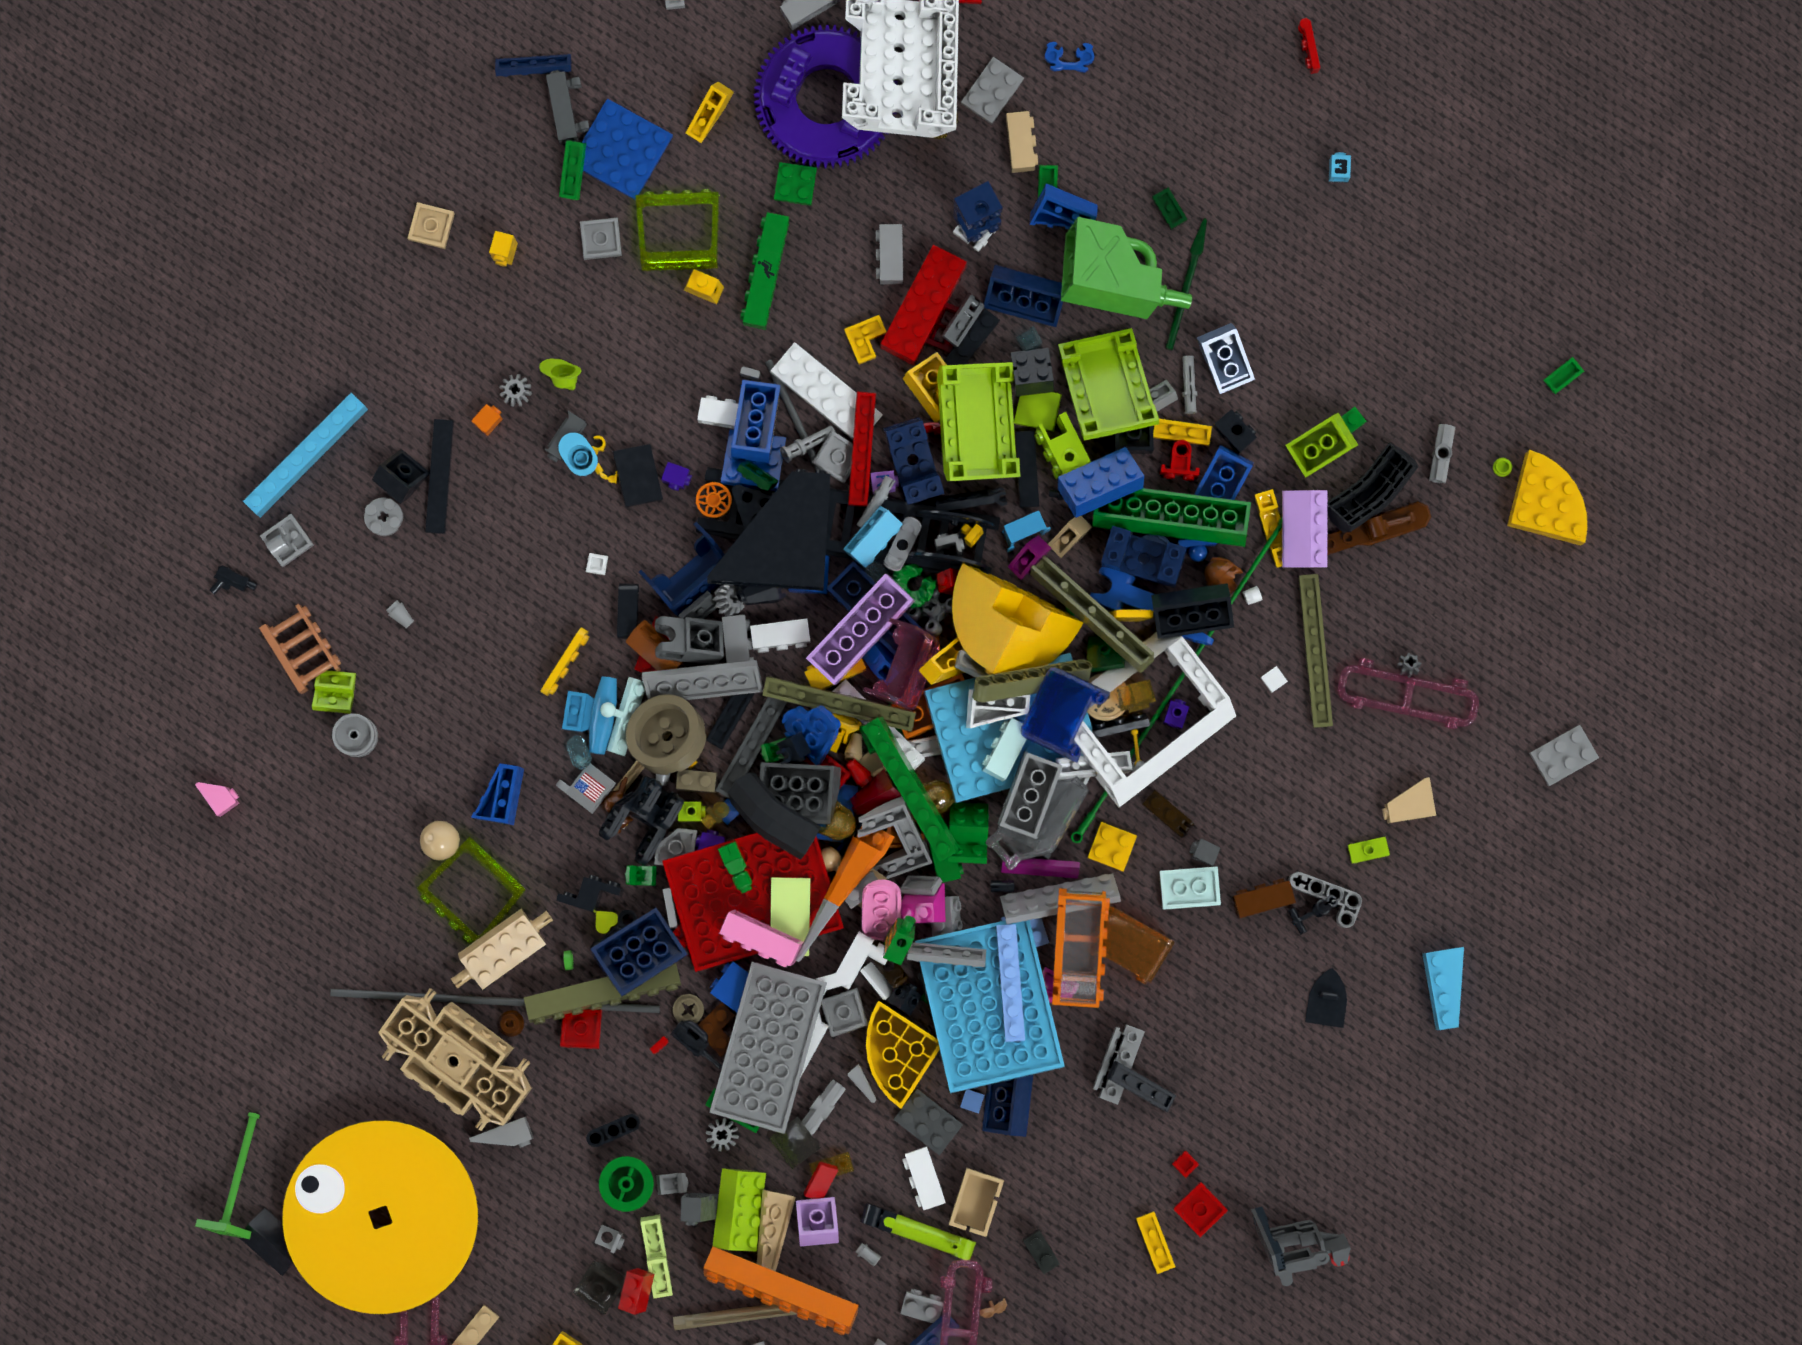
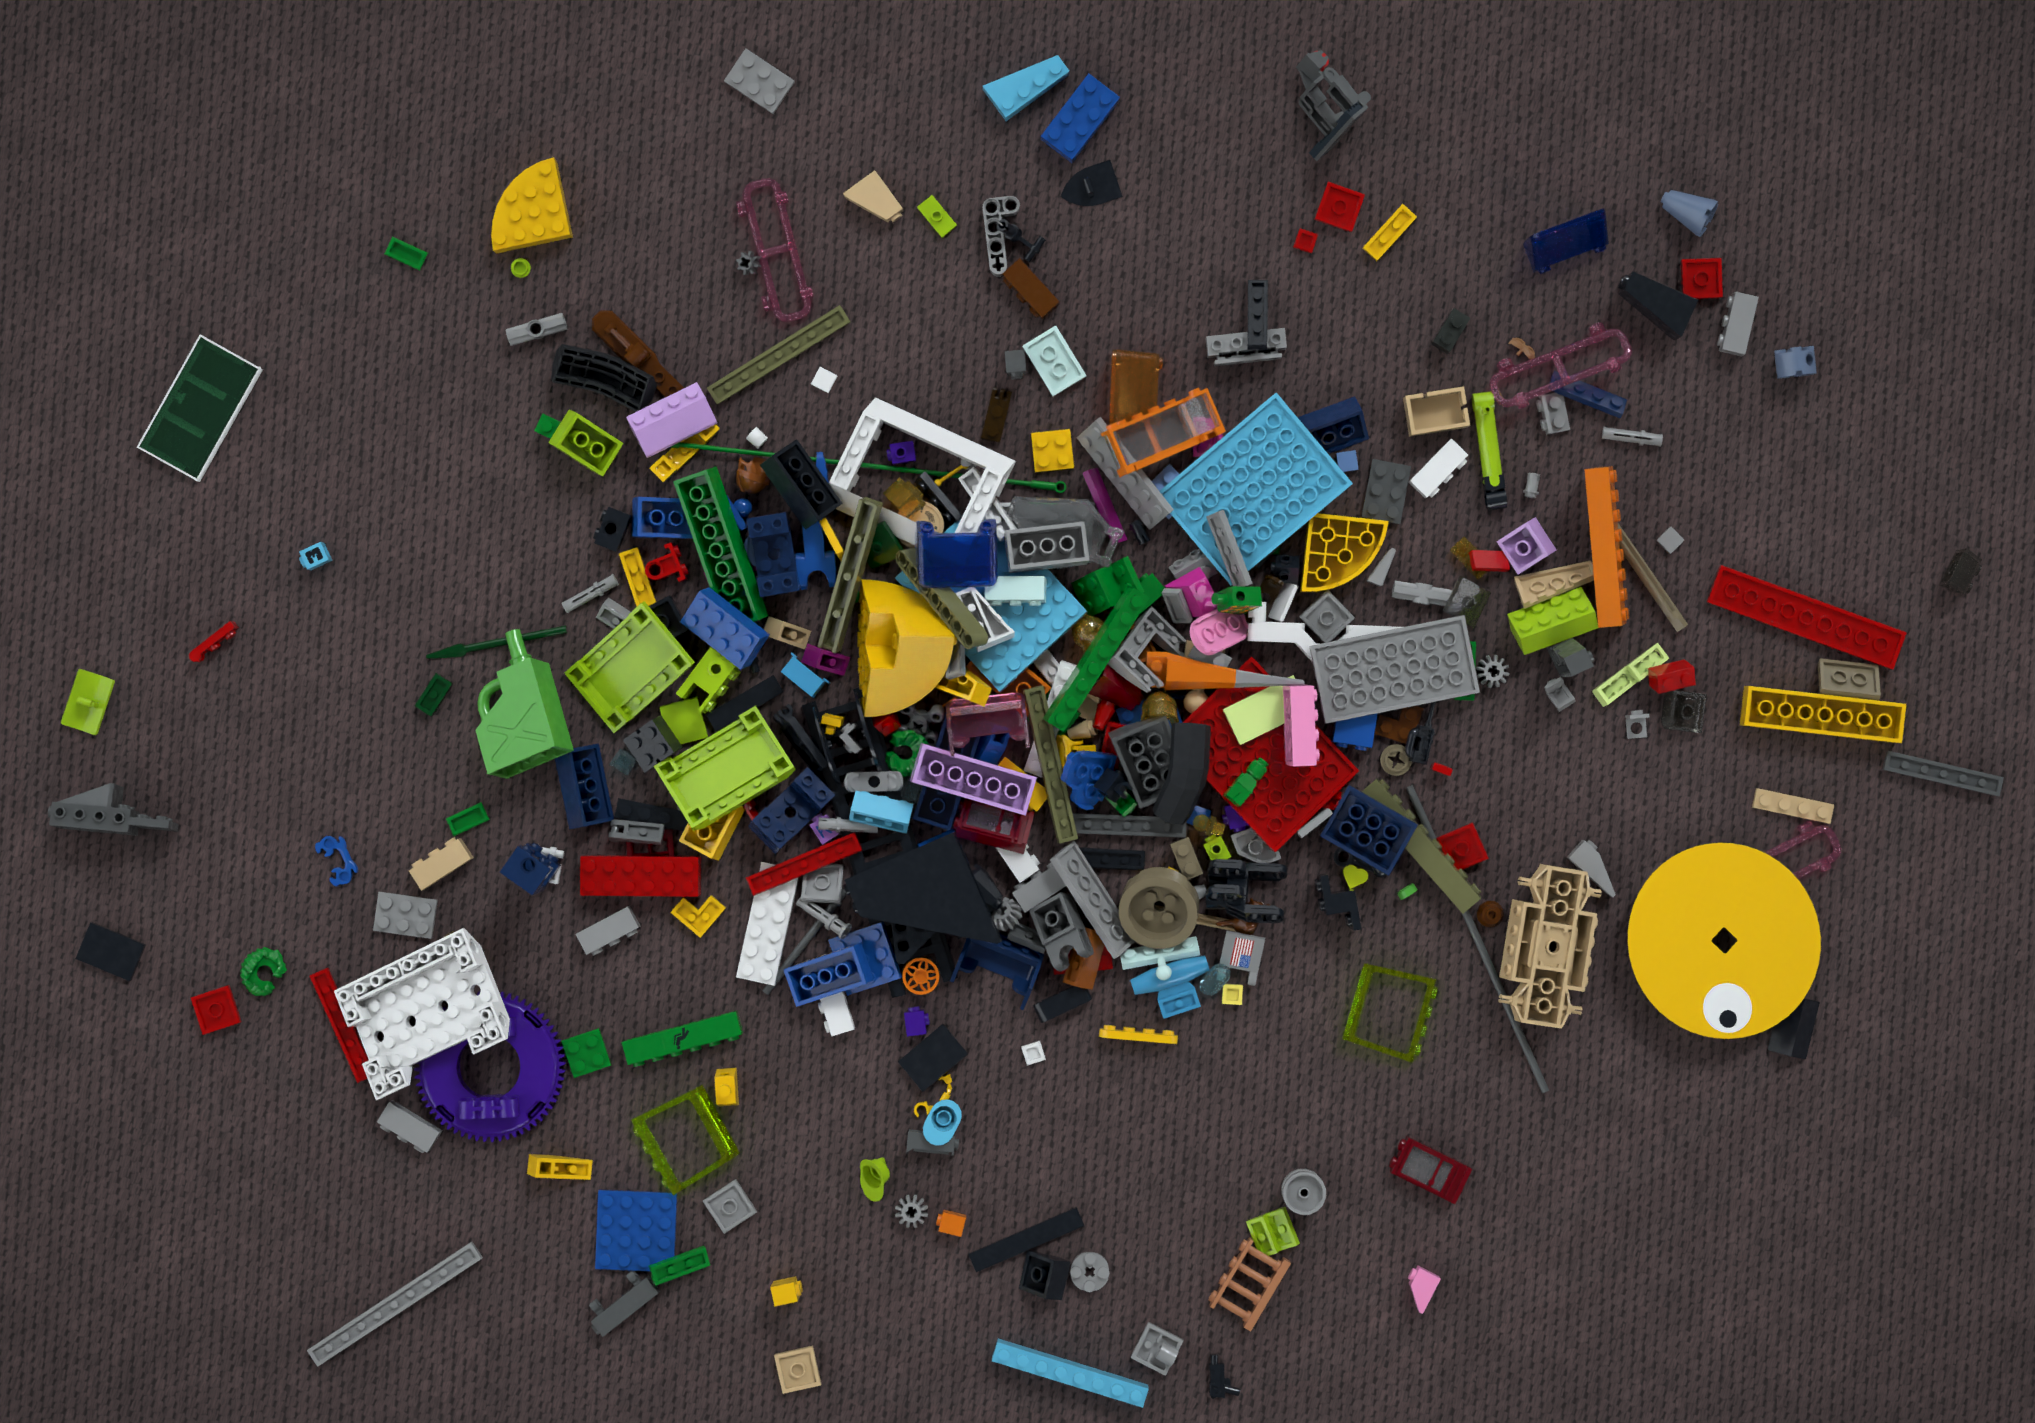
camera: 115 degrees left, 5 degrees up
(224, 1226) = (1803, 1076): bright green tile -> none
(316, 855) = (1430, 1169): none -> dark red door
(399, 613) = (1171, 1209): light grey cone -> none
(439, 840) = (1359, 1064): tan piece -> none
(501, 796) = (1290, 1029): blue wedge -> none
(501, 949) = (1428, 956): tan brick -> none
(533, 65) = (599, 1354): dark blue plate -> none
(558, 761) = (1232, 994): none -> light yellow plate
(606, 1137) = (1547, 775): black beam -> none
(626, 1184) = (1581, 734): green piece -> none
(640, 875) = (1297, 865): green bracket -> none
(750, 373) = (785, 1002): light grey tile -> none
(757, 475) = (878, 947): dark green plate -> none
(810, 627) = (993, 825): none -> dark red door
(1010, 983) = (1225, 479): light blue plate -> none
(1060, 208) = (485, 794): blue wedge -> none
(1225, 358) = (548, 572): sand blue slope -> none
(1392, 1019) = (1080, 118): none -> blue brick
(1516, 134) = (199, 408): none -> clear green door

